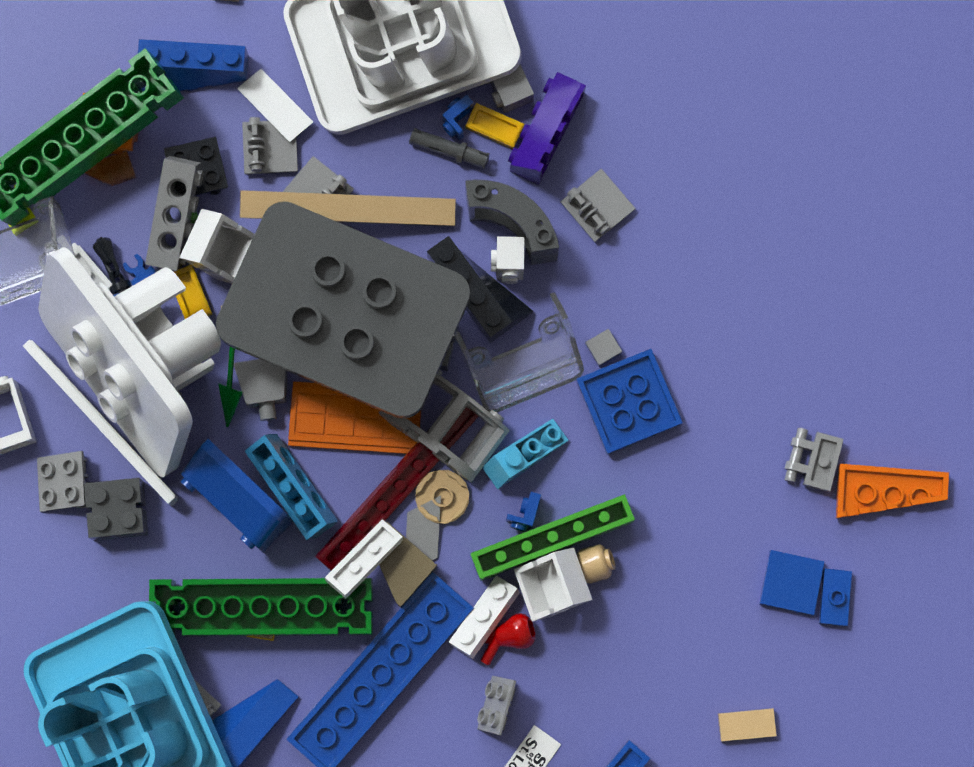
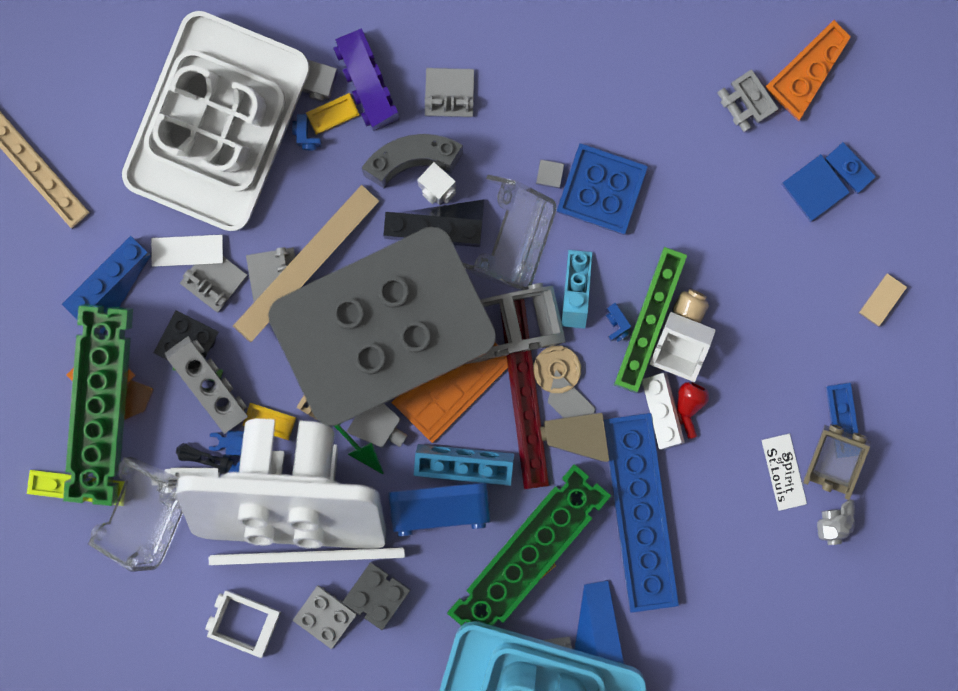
camera: 50 degrees left, 5 degrees up
(217, 245) = (256, 373): white piece -> none
(364, 558) = (558, 457): white plate -> none
(449, 148) = (322, 158): dark grey pin -> none
(498, 695) = (729, 453): light grey hinge -> none

